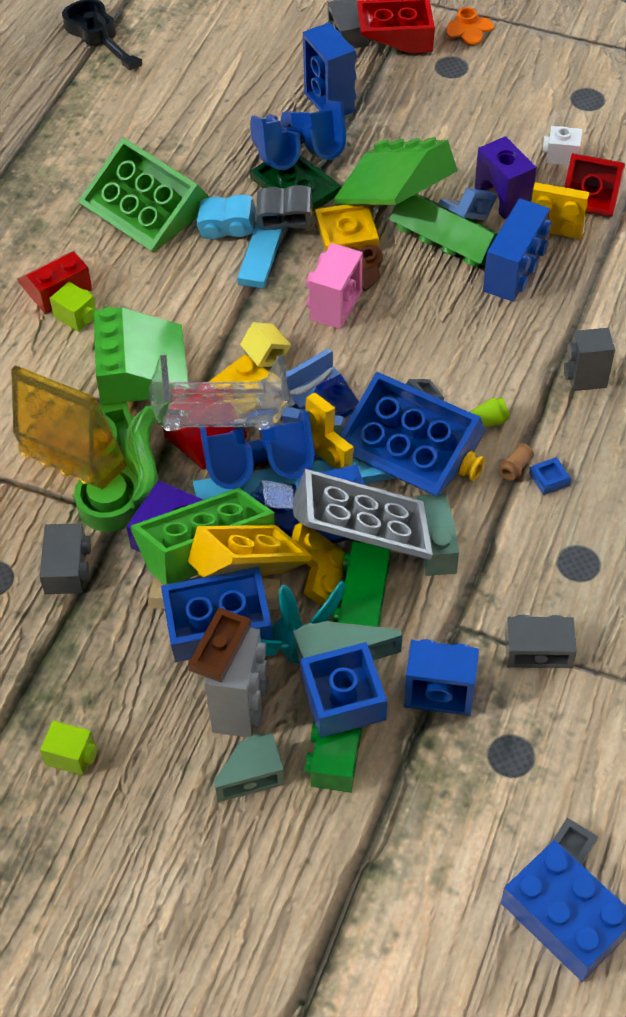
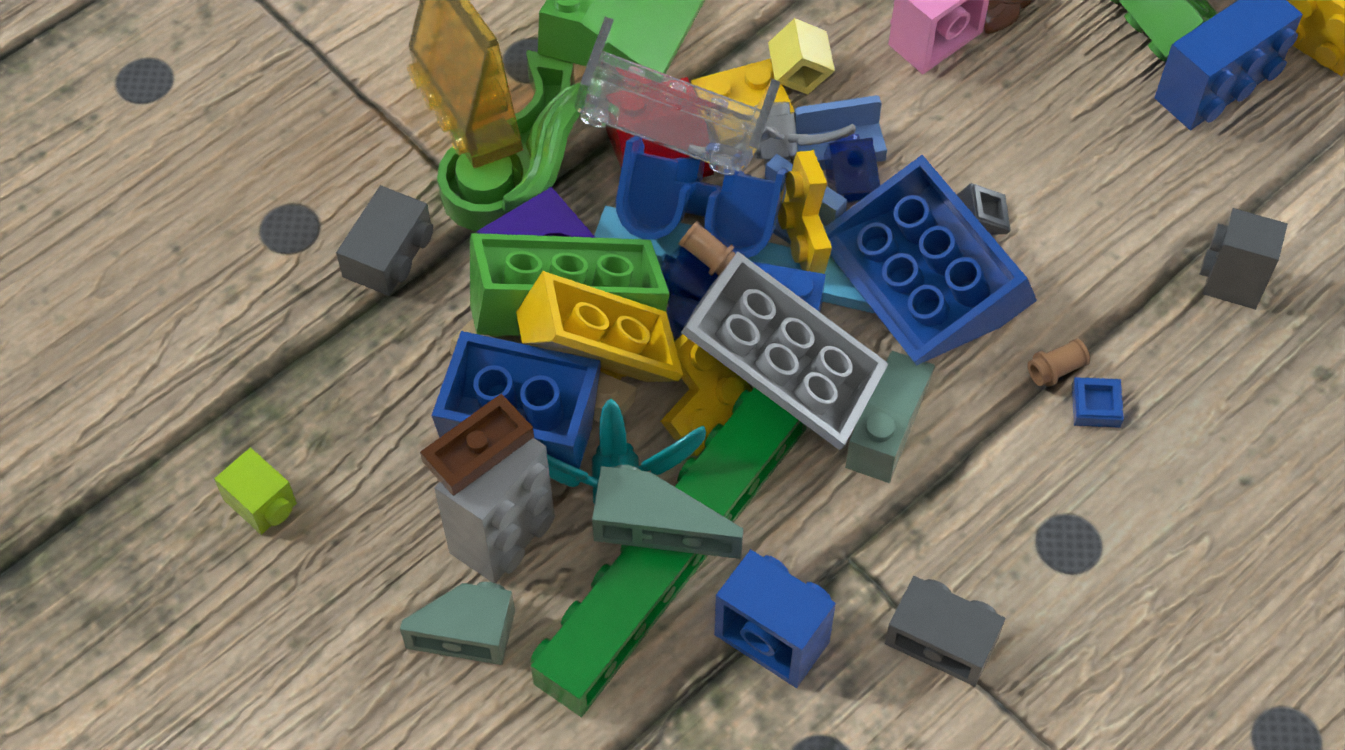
camera: 25 degrees right, 5 degrees up
(281, 477) = (707, 248): none -> medium nougat pin
(343, 689) = (623, 576): blue brick -> none
(472, 466) = (991, 342): yellow bush -> none
(492, 412) = (1057, 278): lime cone -> none

